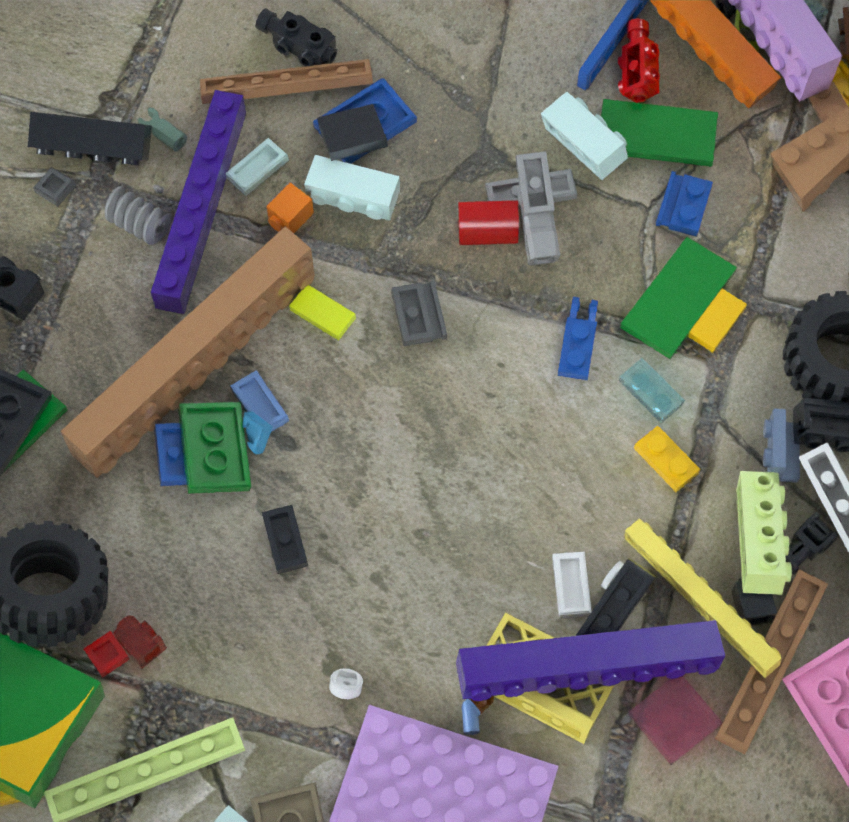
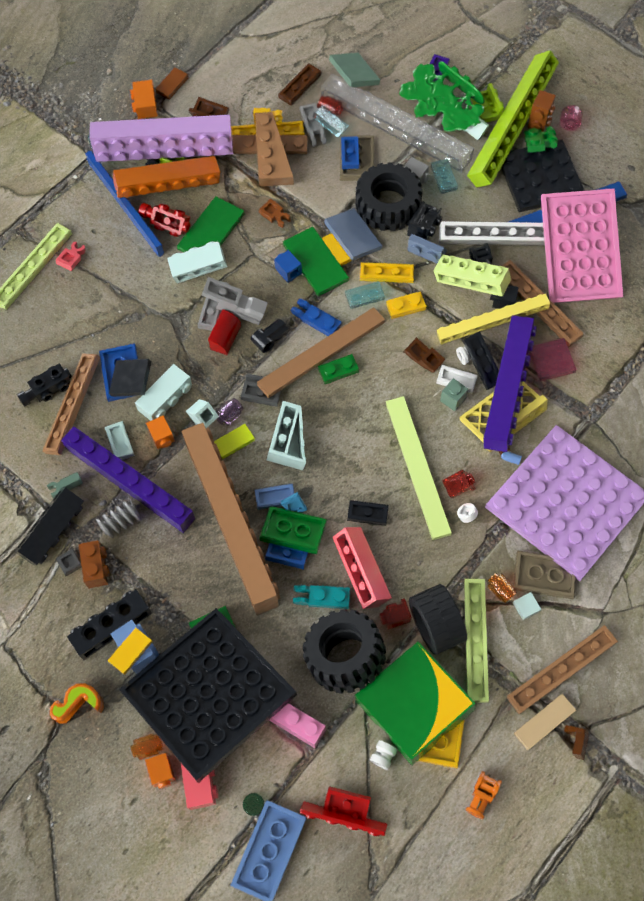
camera: 65 degrees left, 0 degrees up
(58, 214) = (93, 564): none -> dark orange brick
(106, 654) = (396, 636): red plate -> none
(131, 532) = (323, 596): none -> teal hinge
(140, 694) = (438, 619): none -> black tyre
(190, 562) = (361, 567): none -> coral brick
(242, 778) = (501, 587): none -> clear orange brick
(339, 249) = (202, 412): none -> light aqua brick
(354, 376) = (287, 440): none -> light aqua wedge
(362, 284) = (229, 411): none -> clear purple brick
(389, 654) = (459, 483): none -> clear red bracket
(391, 584) = (418, 468): none -> yellowish green tile
(506, 282) = (266, 338): none -> black piece
(506, 405) = (338, 369): none -> green plate
(521, 368) = (320, 352): none -> medium nougat tile
(535, 587) = (454, 394): none -> sand green brick
(589, 519) = (422, 355): none -> reddish brown slope
(645, 261) = (288, 266): none -> blue brick
(684, 203) = (261, 235): blue plate -> none
(712, 408) = (387, 272): none -> yellow tile
(731, 203) = (273, 211): none -> dark orange plate
(752, 330) = (353, 234): none -> sand blue tile

